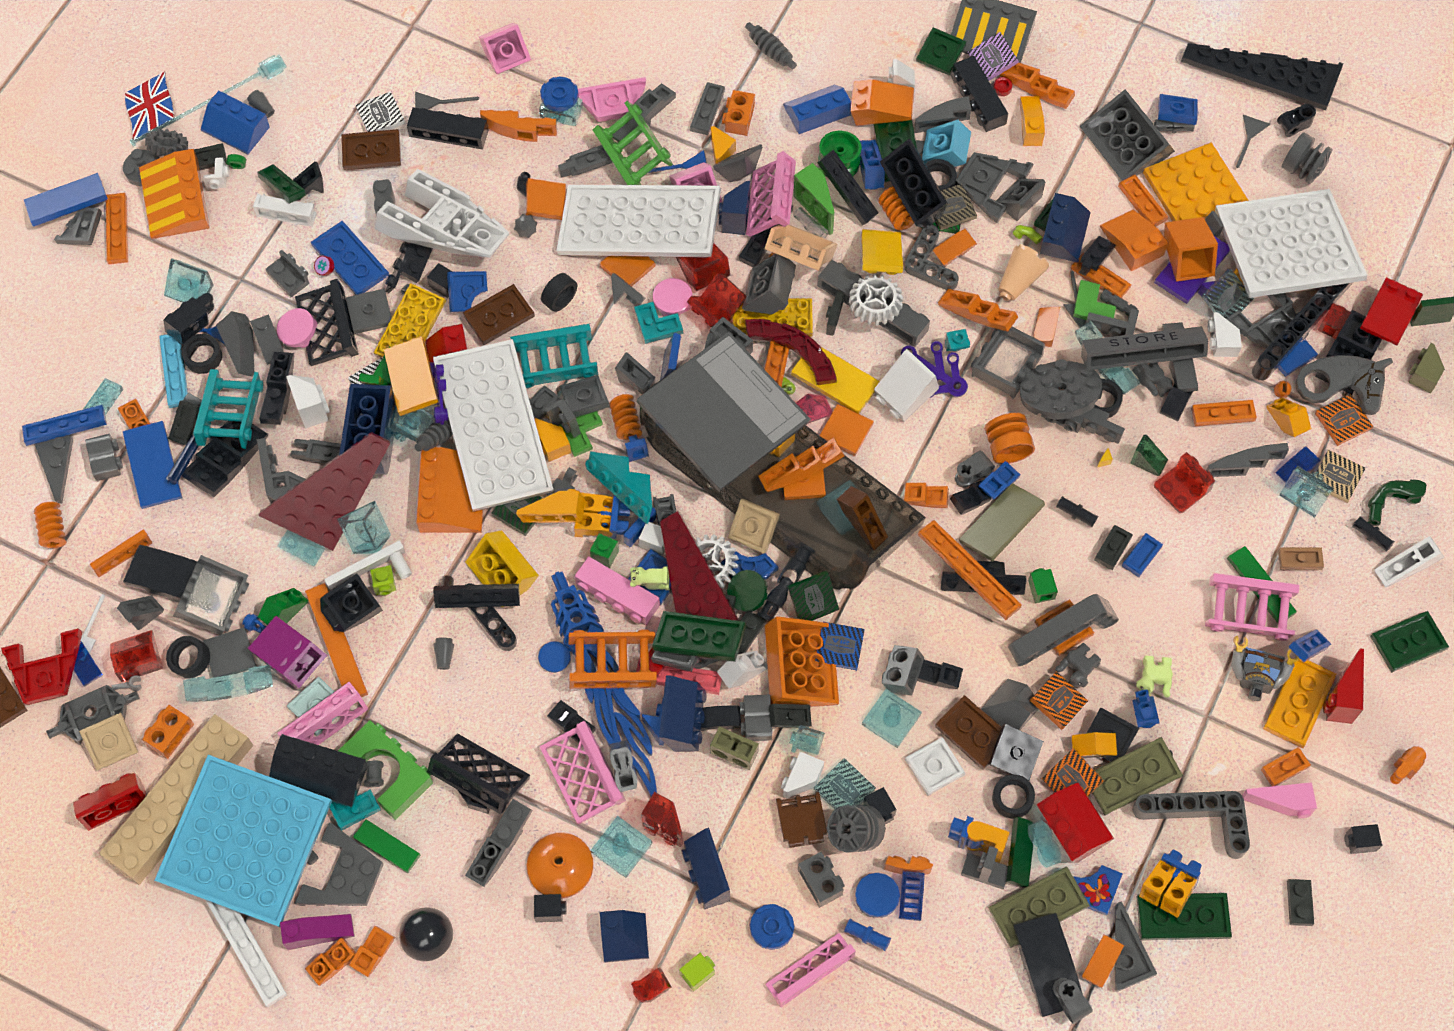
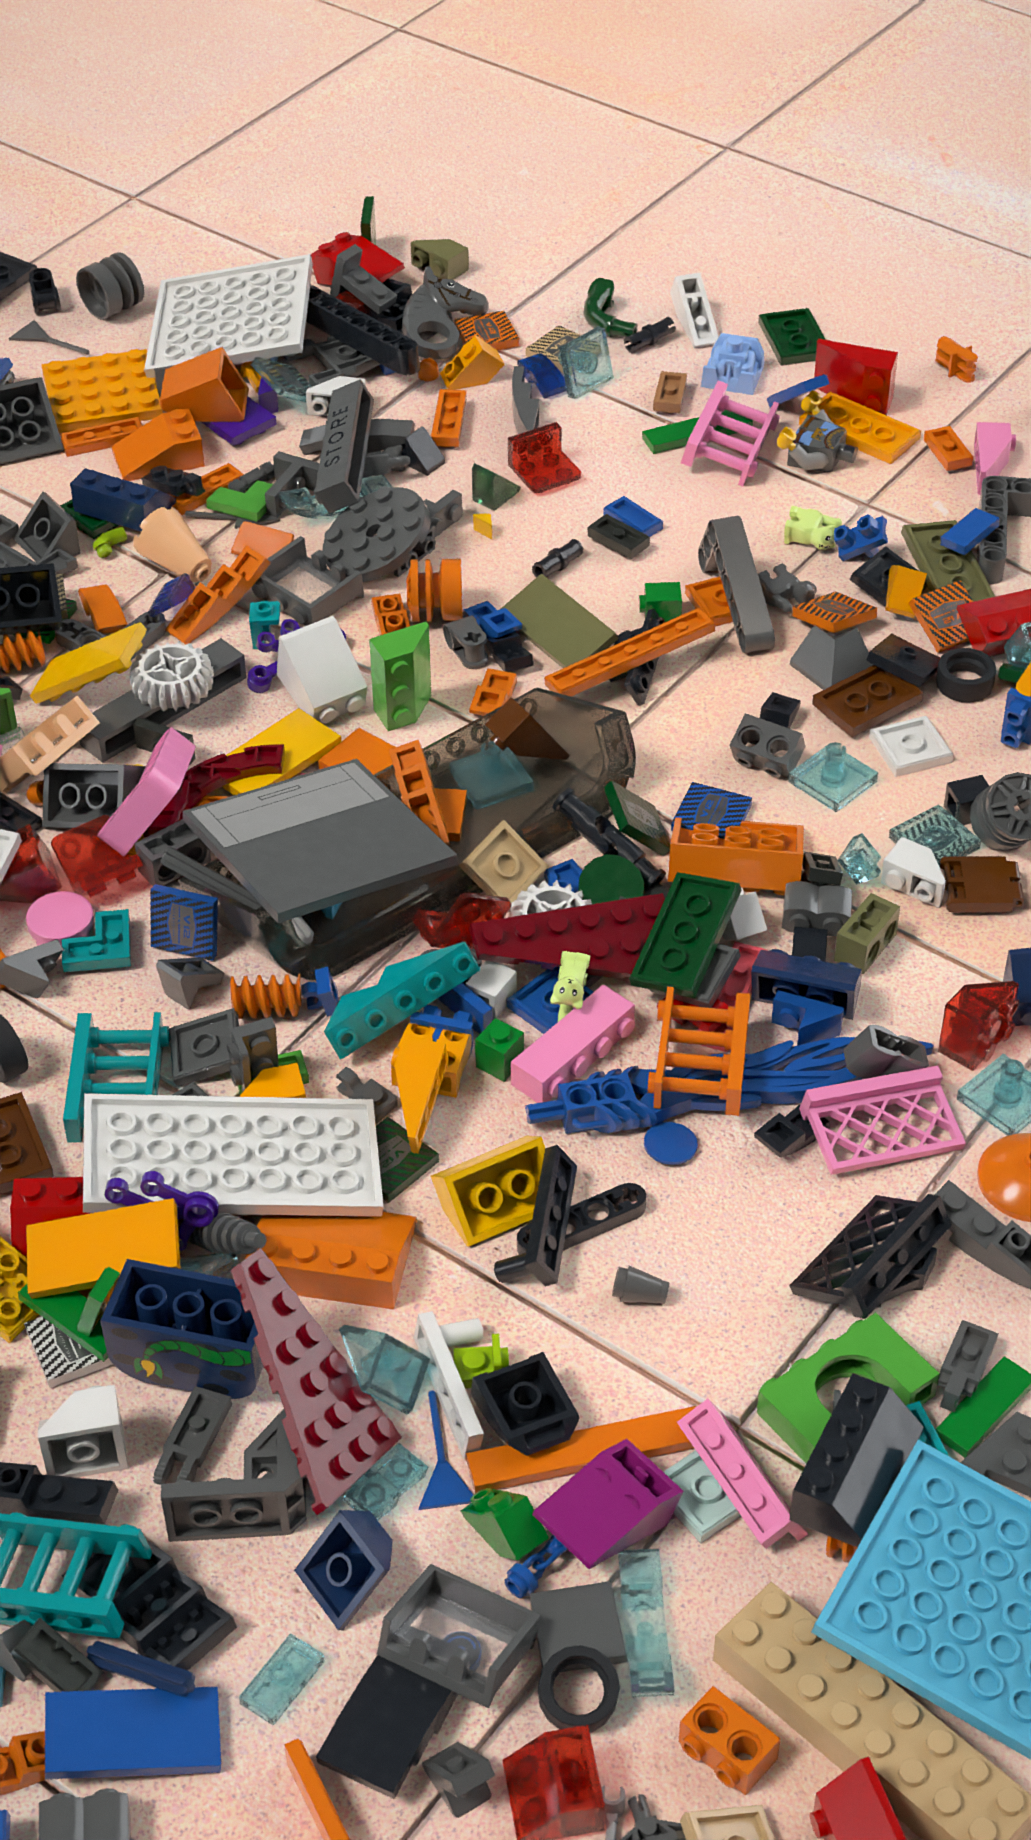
camera: 80 degrees left, 20 degrees down
(190, 524) = (281, 1679): none -> clear light blue plate
(251, 539) = (346, 1564): none -> dark blue slope
(310, 578) = (445, 1484): none -> blue piece
(410, 831) = (965, 1363): none -> dark grey hinge
(694, 507) = (451, 928): none -> clear red bracket
(774, 315) = (151, 795): none -> bright pink beam
(905, 432) = (401, 675): none -> bright green slope
(969, 283) = (172, 594): none -> clear blue slope
(981, 418) = (389, 613): none -> orange slope
(1163, 784) = (969, 531): none -> blue tile
(1347, 600) = (735, 362): none -> light blue brick
(1352, 320) = (353, 278): none -> dark grey bracket

